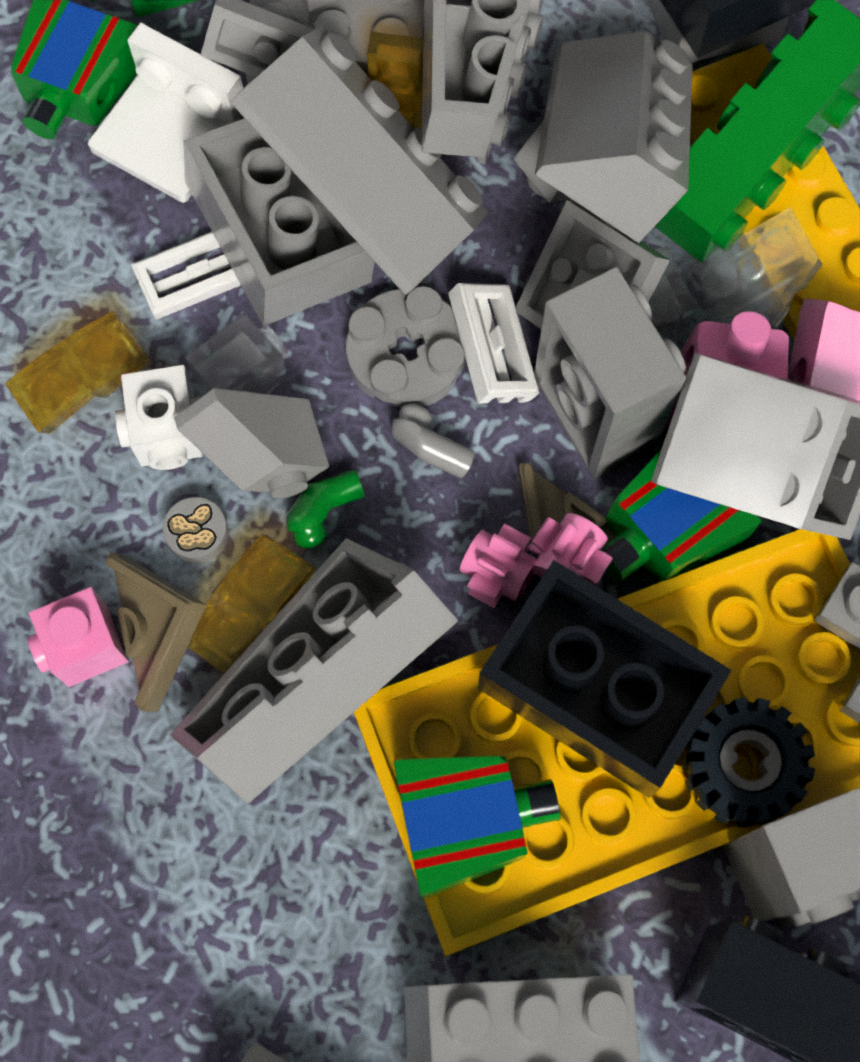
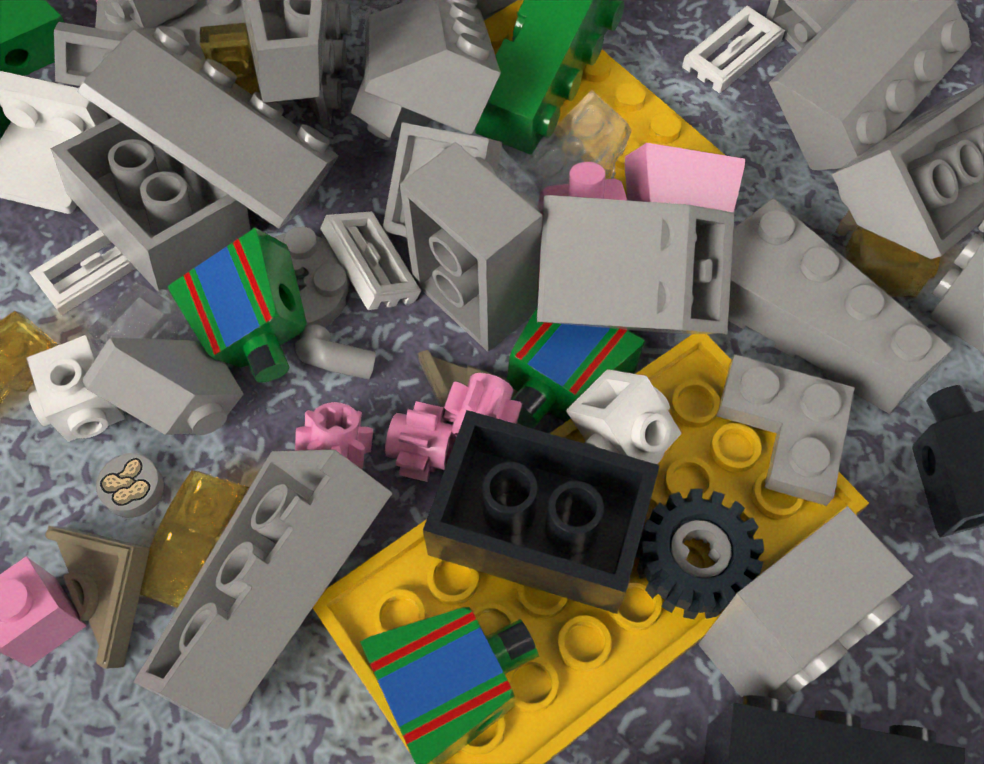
camera: 15 degrees left, 10 degrees down
(314, 504) = (239, 431): green arm -> none
(351, 370) = (244, 304): none -> green torso
(412, 537) = (335, 428): none -> bright pink gear
(713, 606) = (625, 416): none -> white brick

